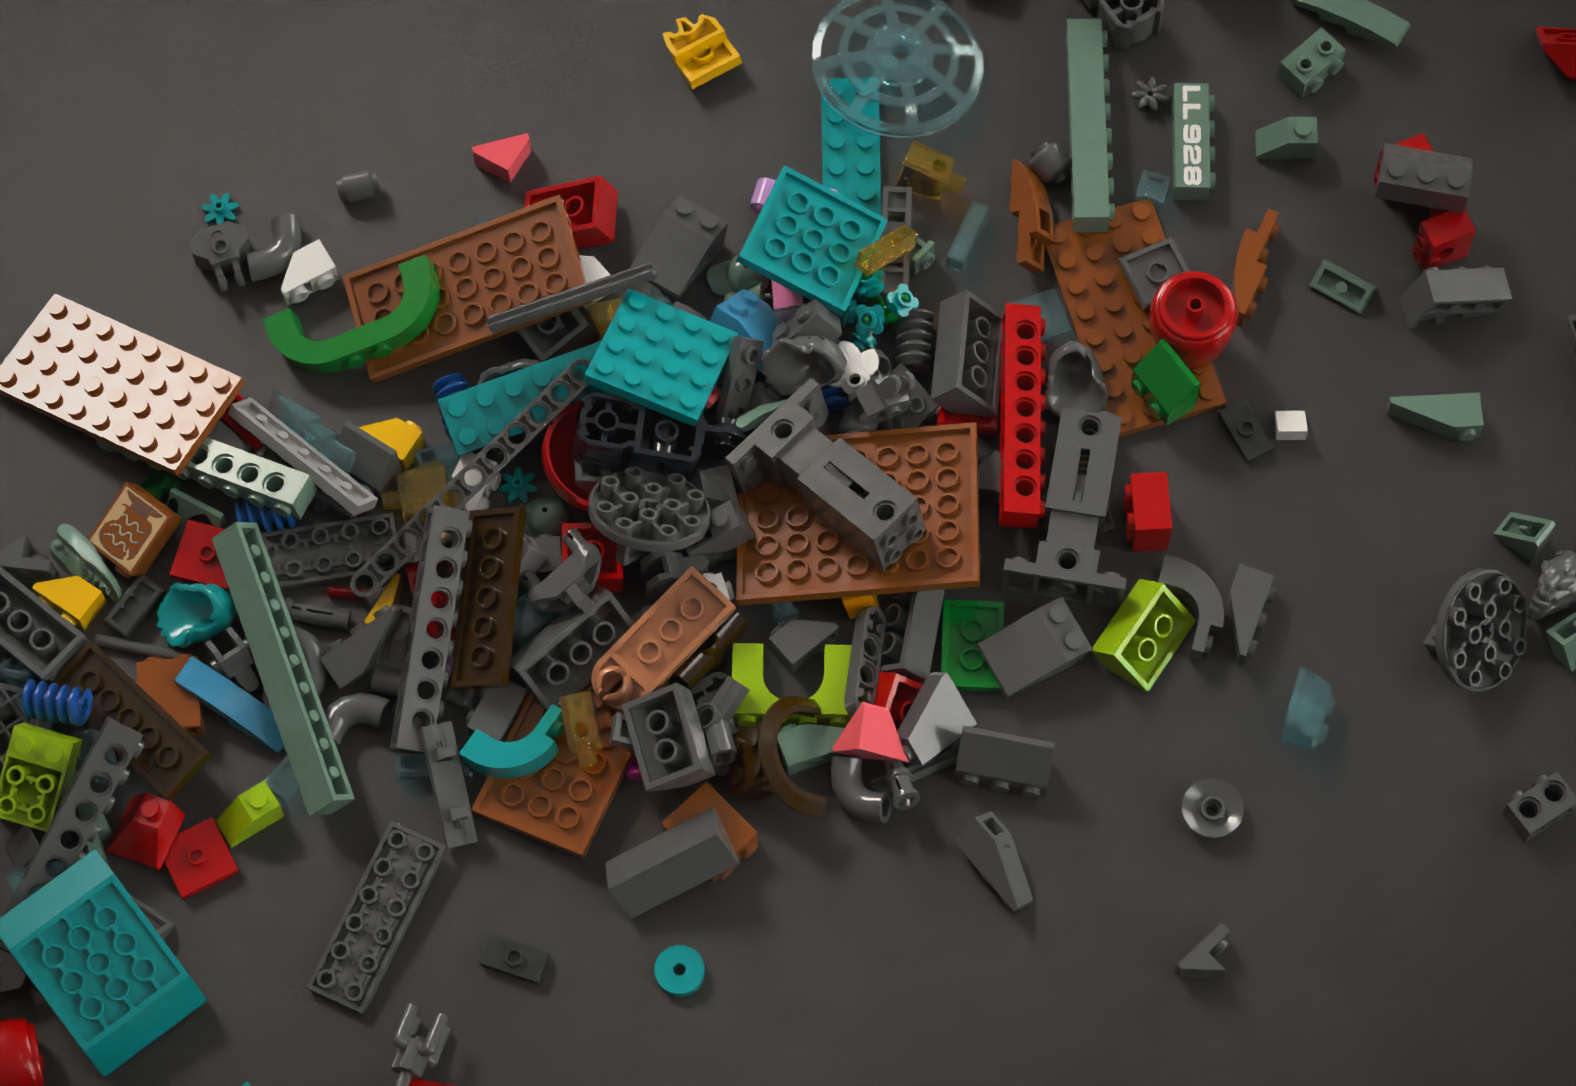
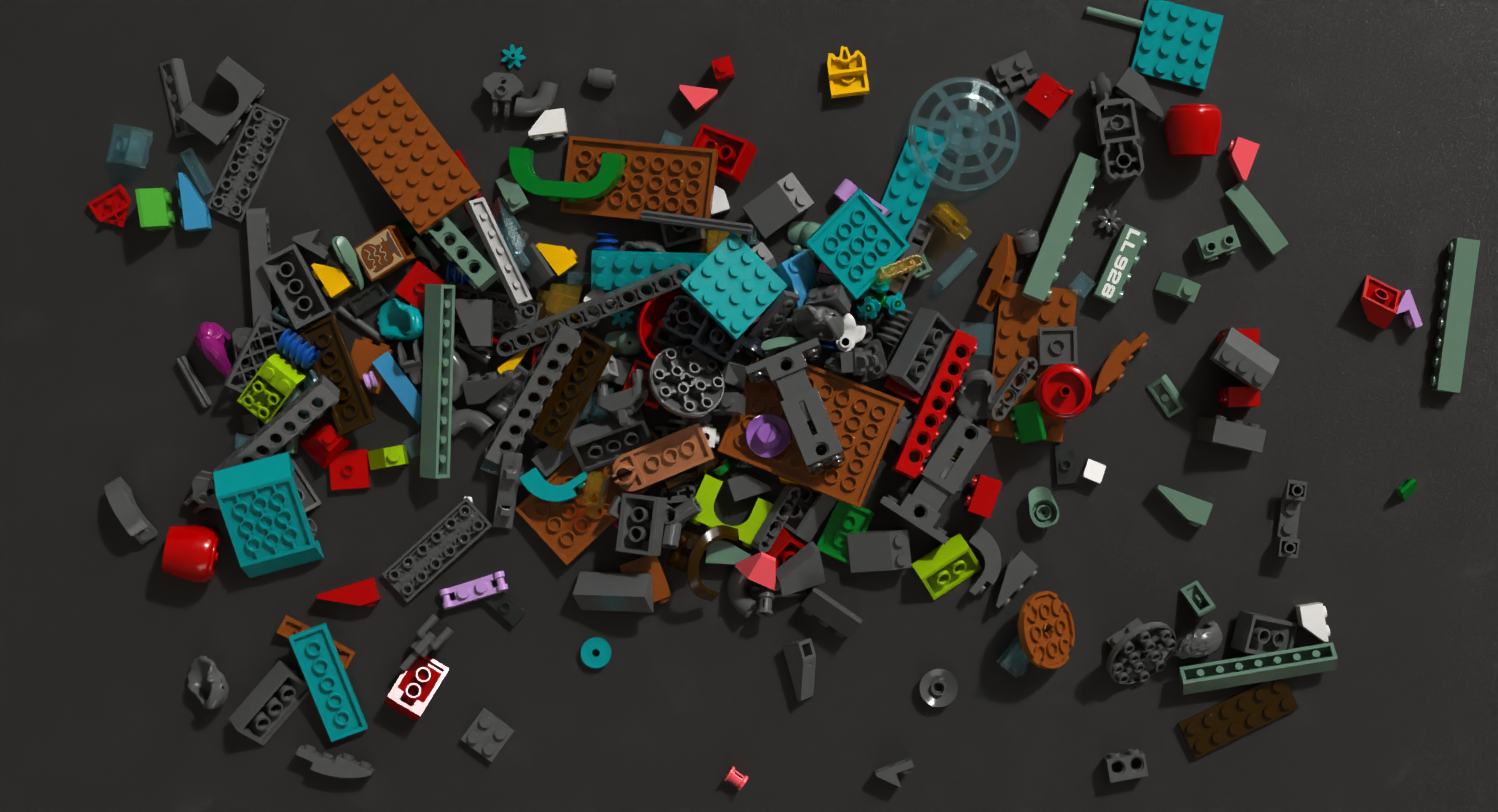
camera: 20 degrees right, 20 degrees up
(181, 706) = (370, 380): none -> lavender bush
(274, 1032) = (358, 593): none -> red slope
(293, 381) = (513, 193): none -> sand green slope
(307, 565) = (477, 320): none -> dark grey slope
(456, 953) = (473, 590): none -> lavender plate
(523, 108) = (722, 69): none -> red brick
(754, 629) = (723, 467): none -> green tile
(800, 546) = (768, 435): none -> medium lavender hat
(971, 1065) = (736, 778): none -> coral bush
(1123, 351) = (1010, 386): none -> dark grey beam
(1240, 490) = (1042, 500): none -> sand green cap
(1328, 653) = (1048, 648): none -> dark orange plate

